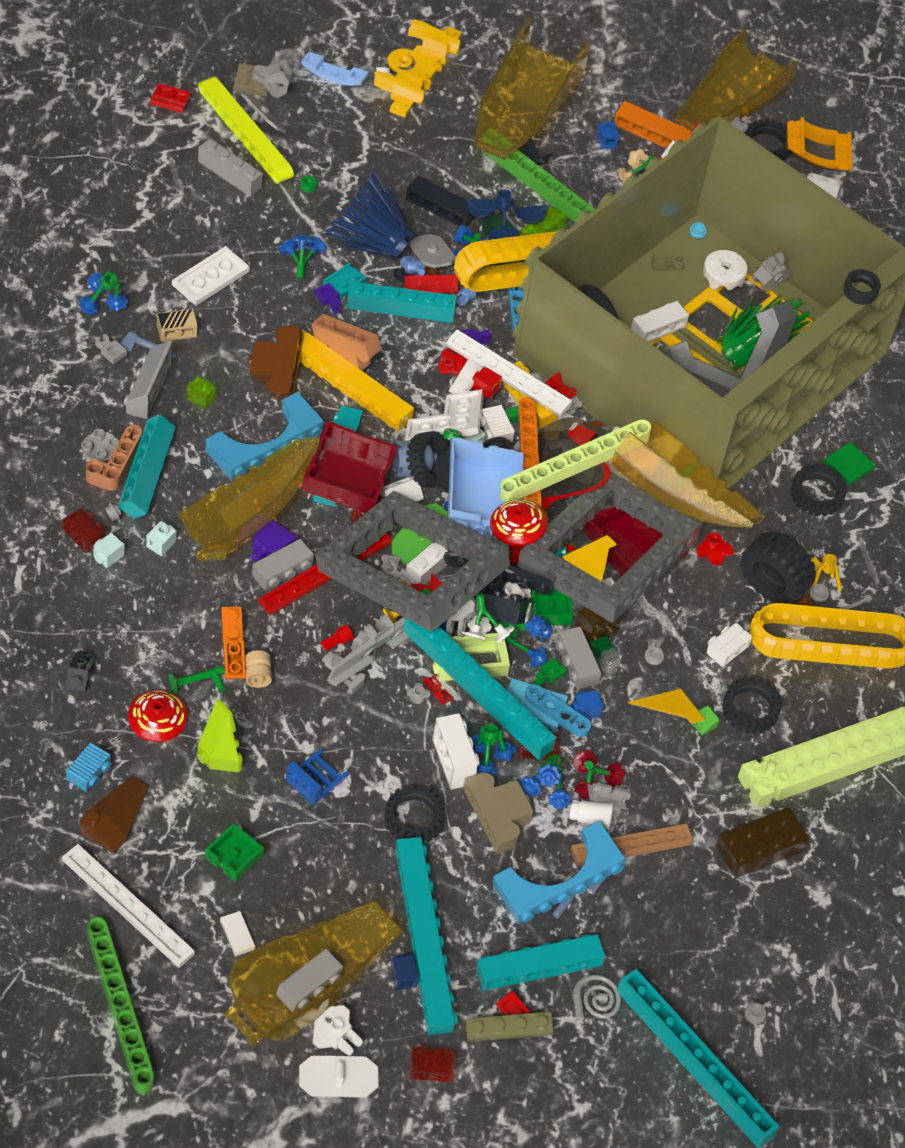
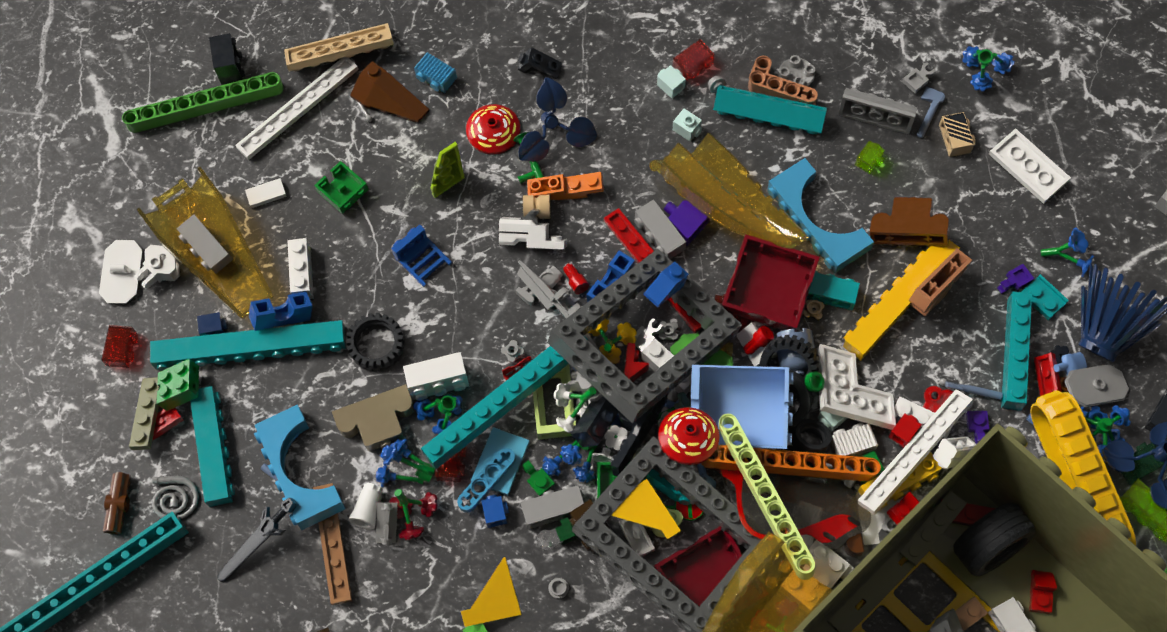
camera: 105 degrees right, 15 degrees up
(53, 862) = (338, 47): none -> tan plate
(68, 976) = (226, 58): none -> black container
(156, 655) = (549, 97): none -> dark blue plant
(288, 673) = (530, 231): none -> white plate
(329, 598) = (617, 267): none -> blue arch
(334, 887) = (300, 267): none -> white brick
(363, 535) = (666, 284): none -> blue slope
(390, 896) = (294, 310): none -> blue arch
(403, 480) = (760, 339): none -> red piece
(440, 342) = (975, 390): none -> sand blue piece
(478, 991) = (177, 384): none -> green piece
(506, 347) = (952, 451): none -> white brick
(609, 1049) = (117, 503): none -> reddish brown piece
(624, 308) = (1041, 591): none -> red slope
(630, 893) = (267, 528): none -> sword

